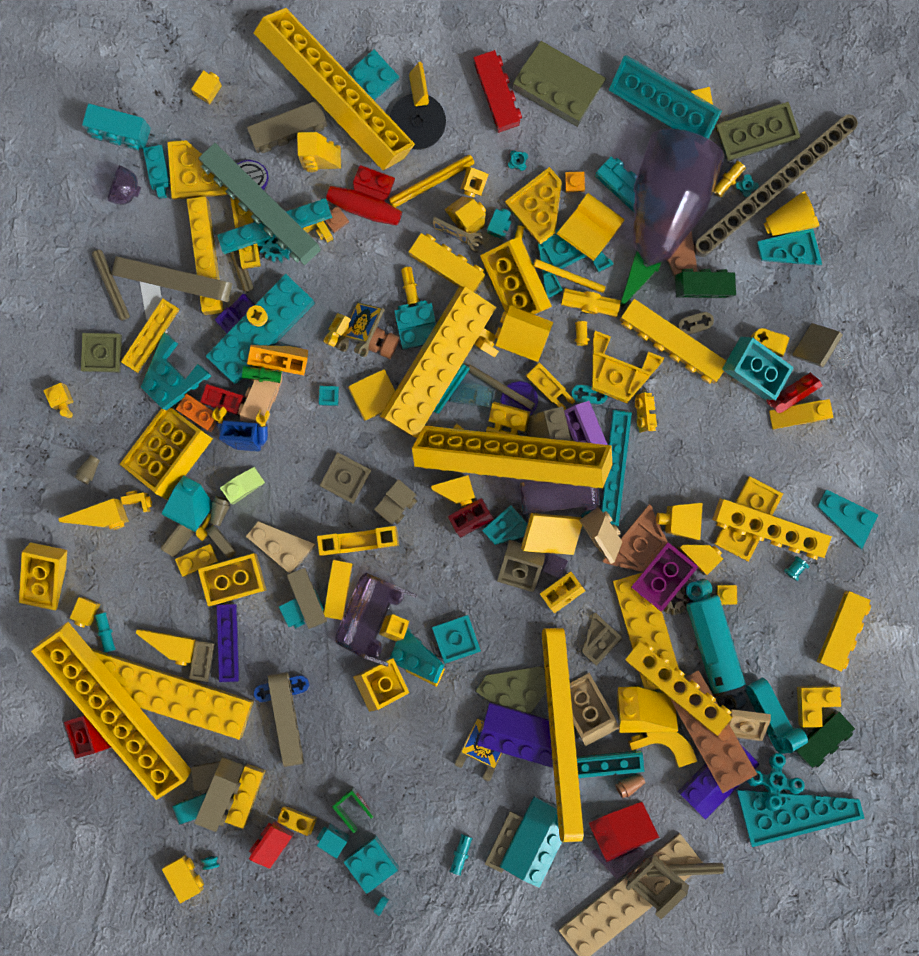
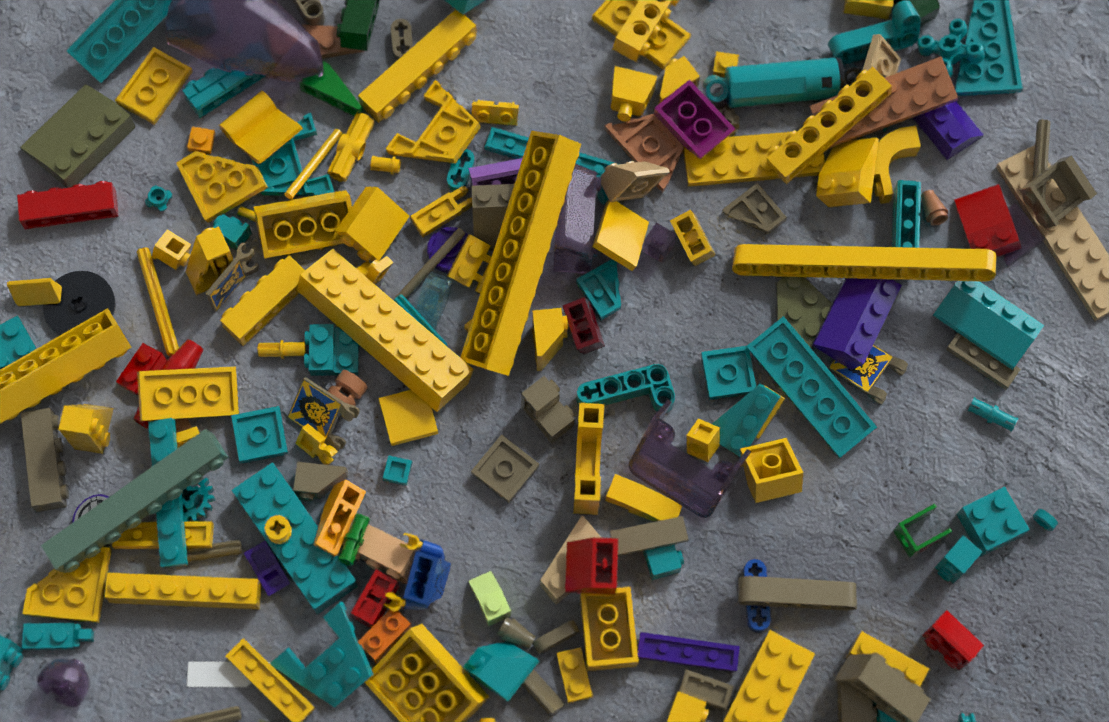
camera: 85 degrees left, 15 degrees down
(172, 279) = (203, 634): dark tan beam -> none
(201, 532) = (543, 663): yellow hand -> none
(270, 558) = (592, 566): none -> red slope
(297, 820) = (926, 604): yellow leg -> none
(309, 335) = (316, 479): none -> dark tan slope
(337, 284) = (259, 434): none -> teal plate
(355, 222) = (187, 393): none -> yellow plate
(425, 558) = (625, 392): none -> teal beam
(454, 706) = (811, 387): none -> teal plate
(520, 567) = (653, 281): dark tan slope -> none
(590, 711) = (839, 228): tan slope -> none
(615, 132) = (154, 86): none -> yellow tile

